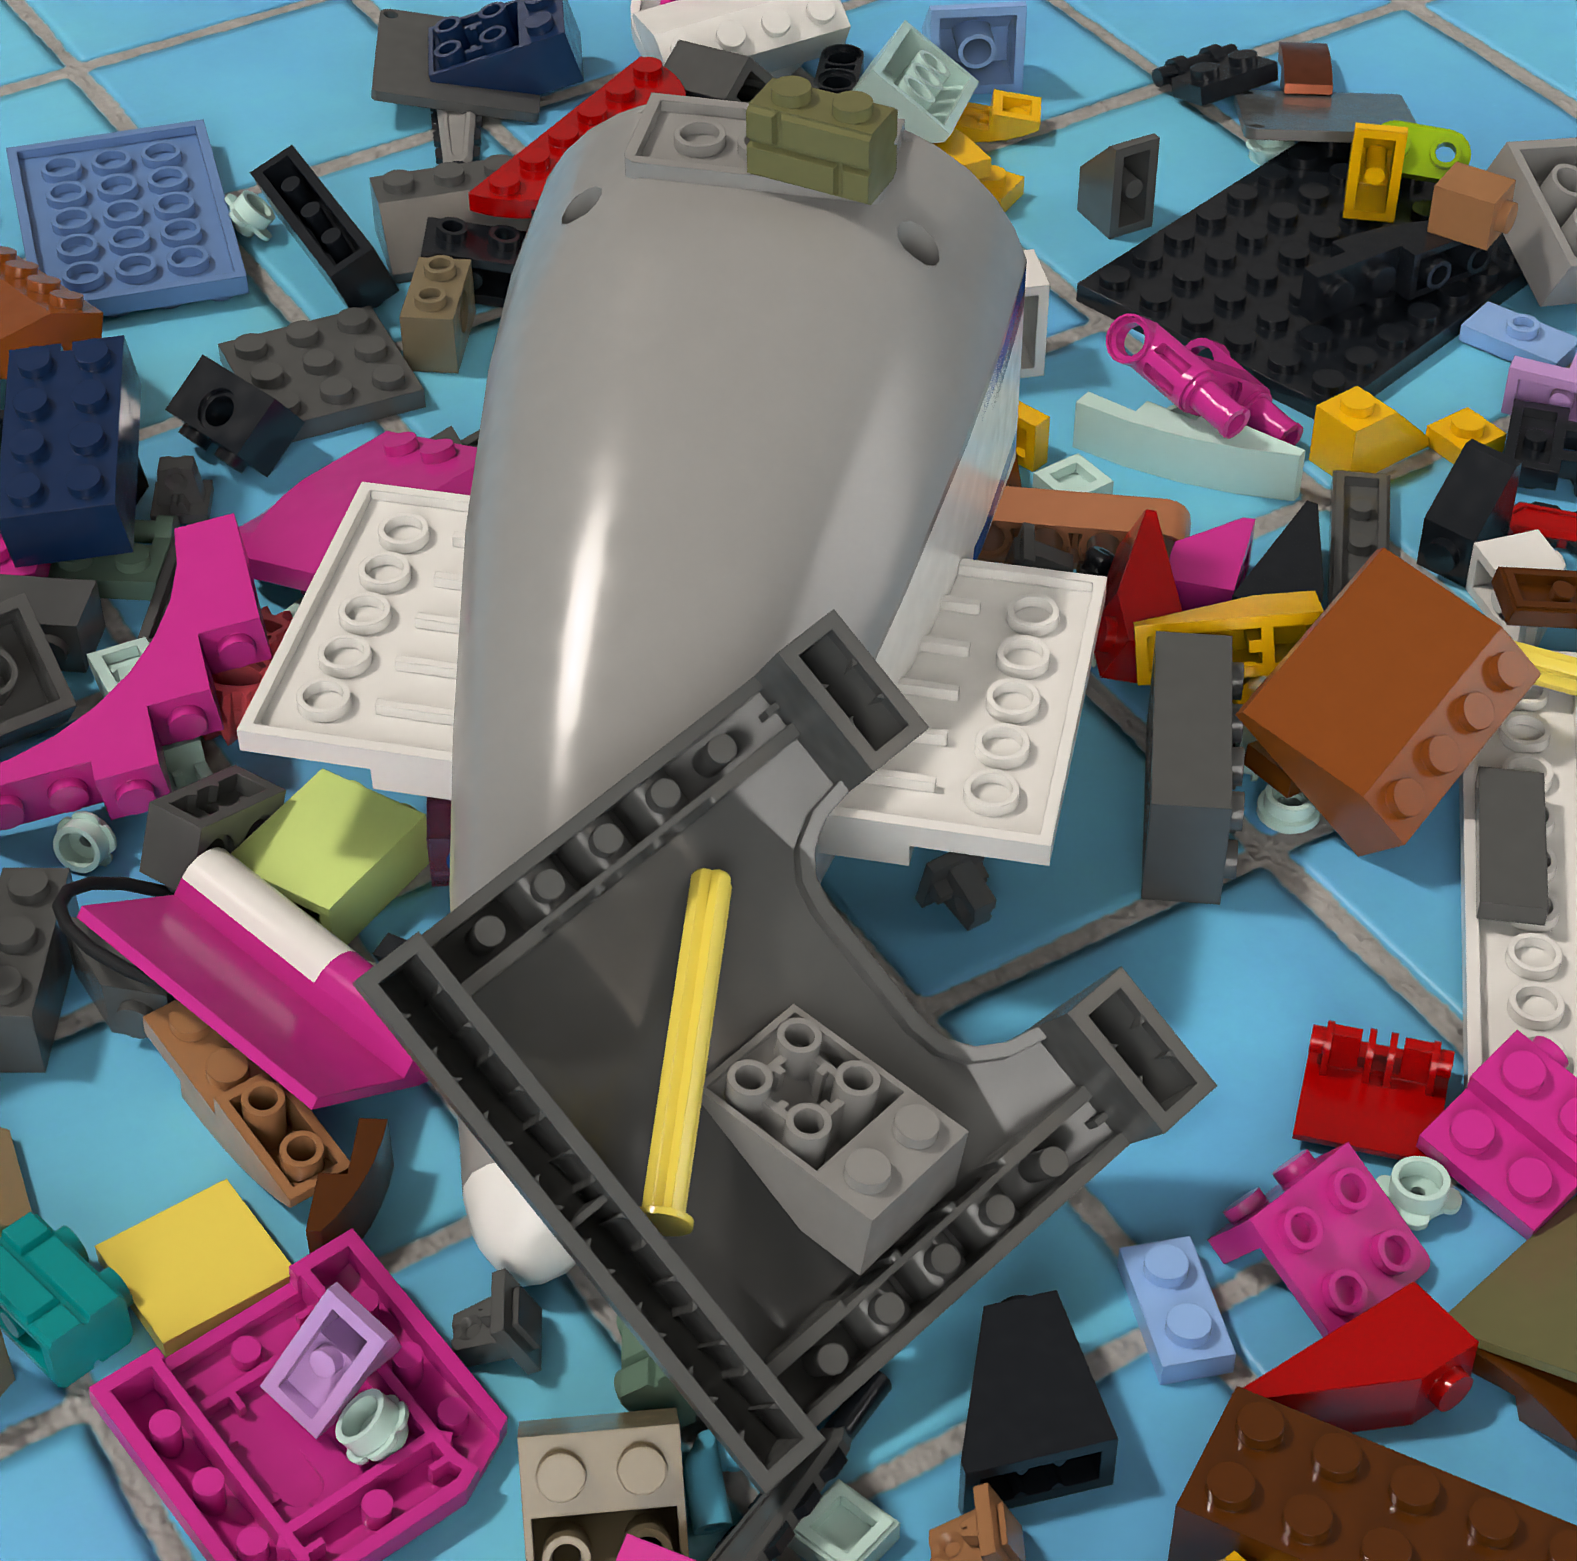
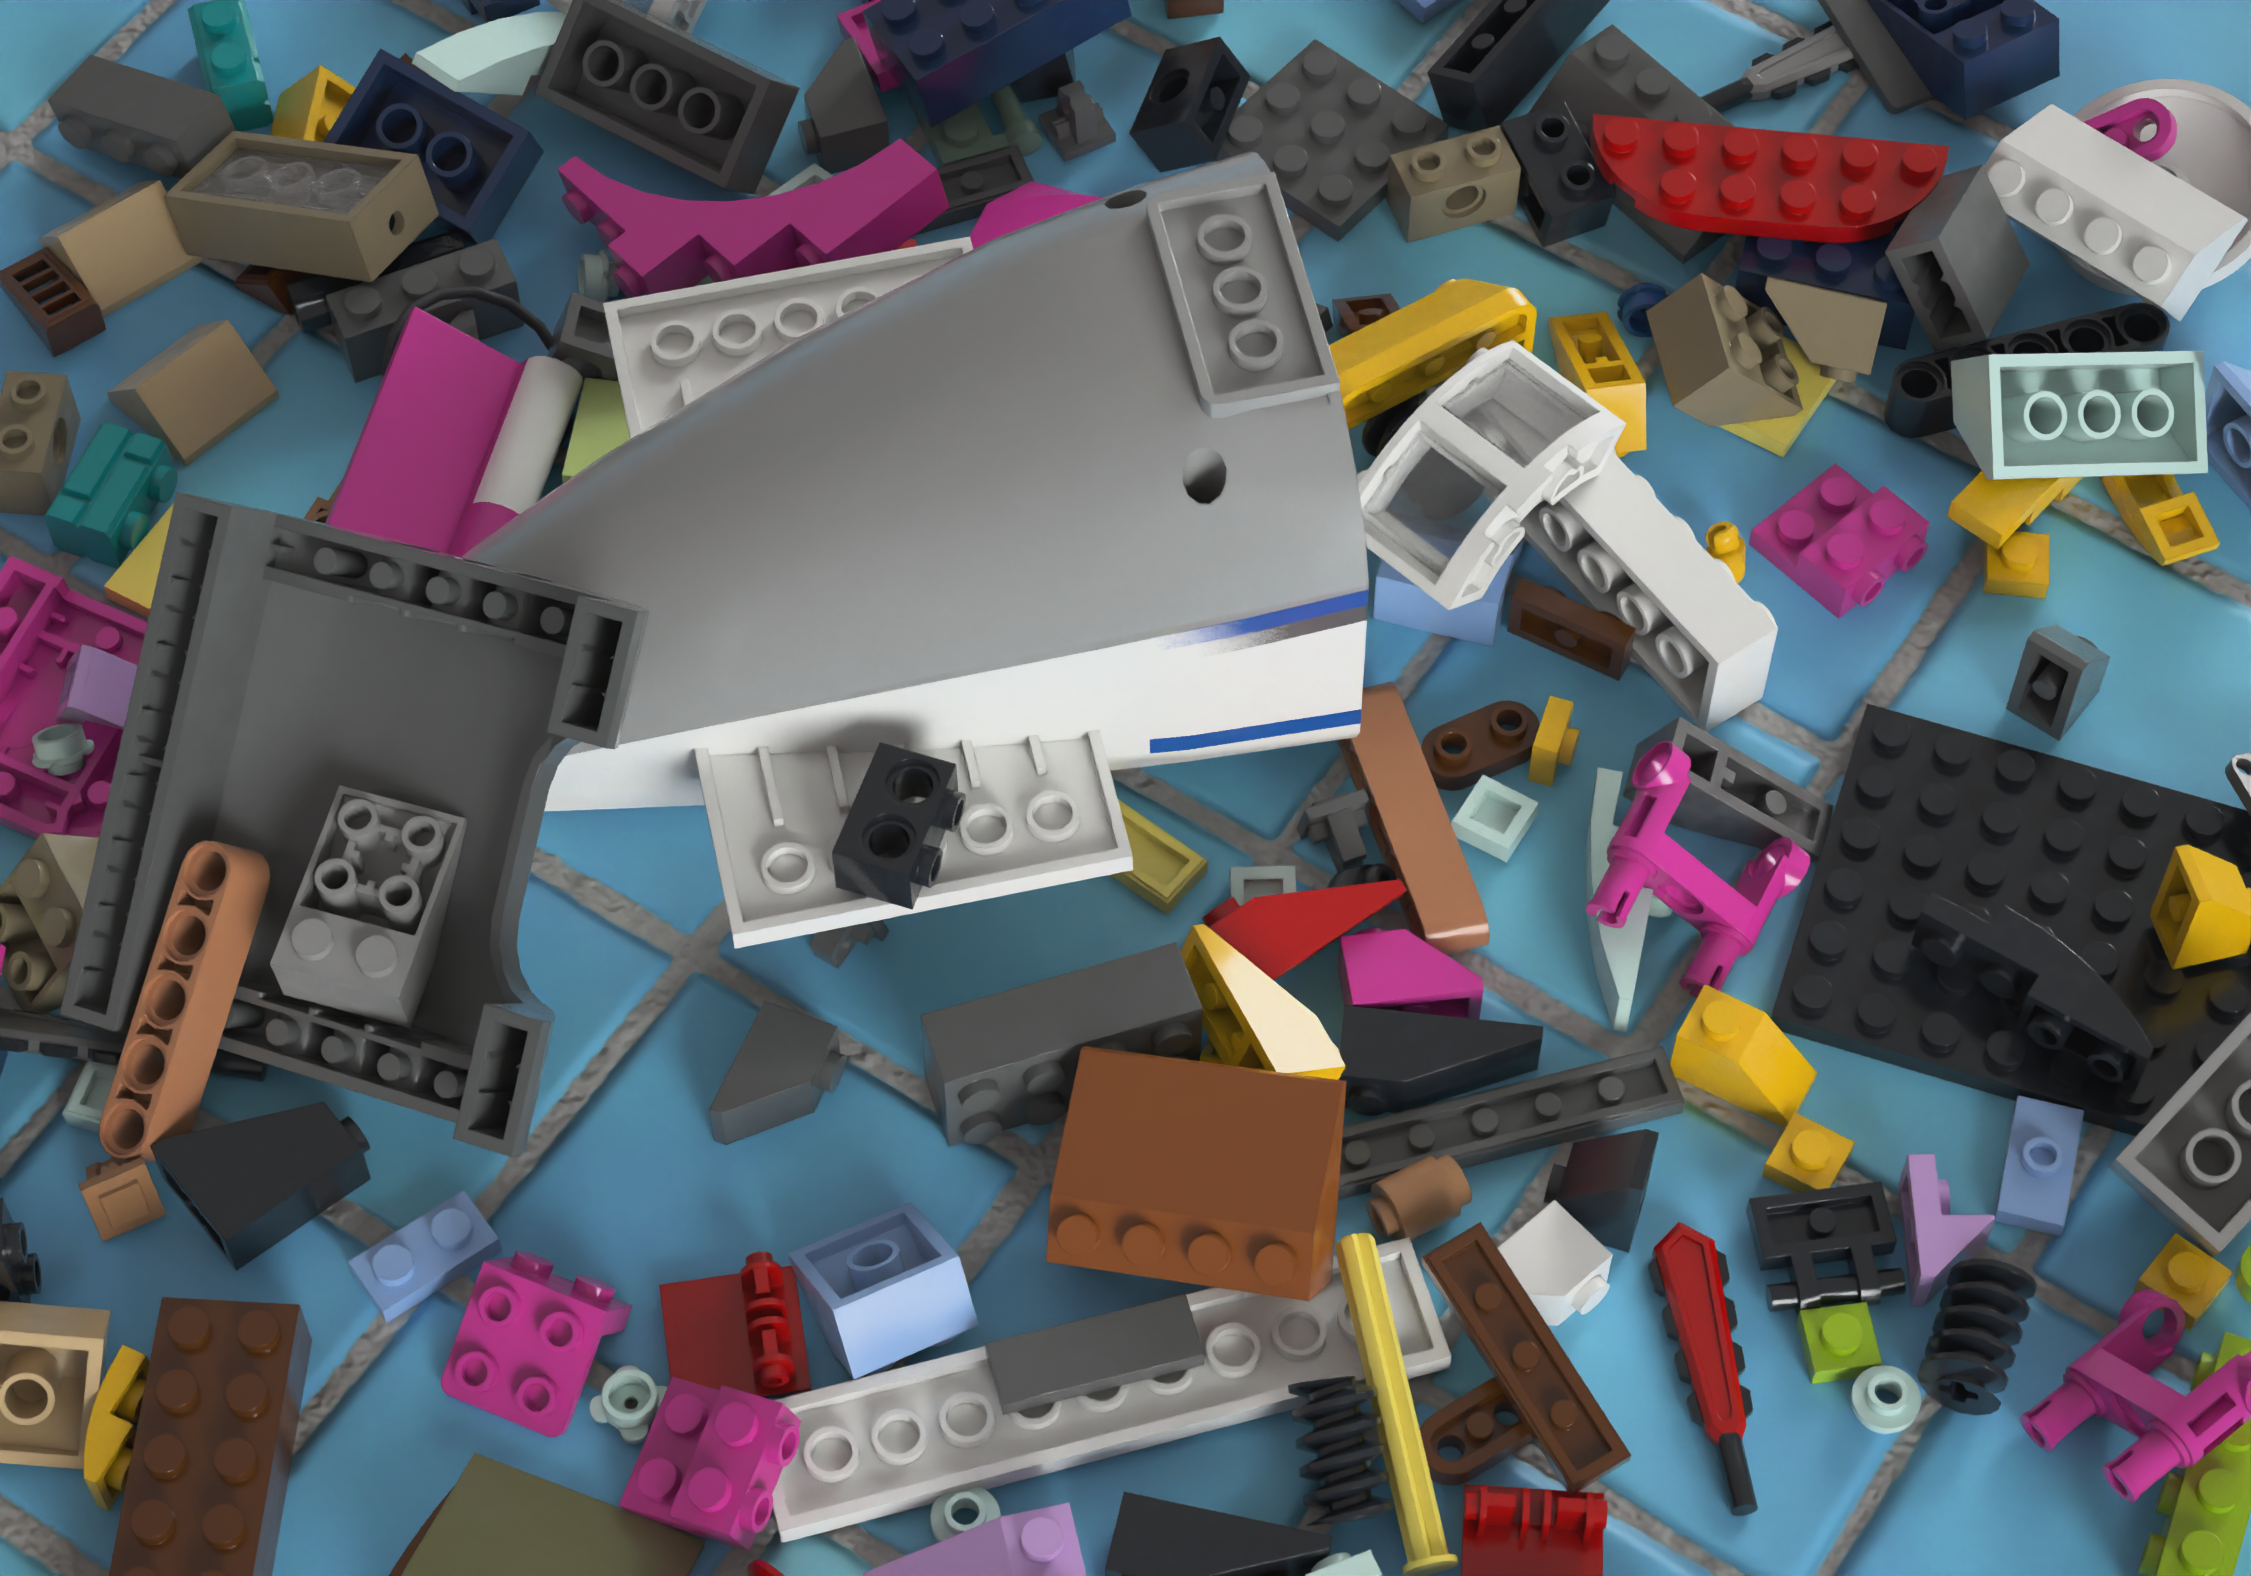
camera: 65 degrees right, 15 degrees up
(686, 1053) = (351, 758): light yellow axle -> none
(821, 139) = (1201, 328): olive brick -> none
(864, 1376) = (185, 998): none -> nougat beam
(1012, 685) = (885, 823): none -> black brick
(1086, 950) = (777, 1074): none -> dark grey slope
(1092, 369) = (1737, 795): none -> flat silver slope
(1377, 963) = (885, 1290): none -> light blue slope
(1379, 1366) = (407, 1422): red slope -> none
(1472, 206) = (2124, 1015): medium nougat brick -> none

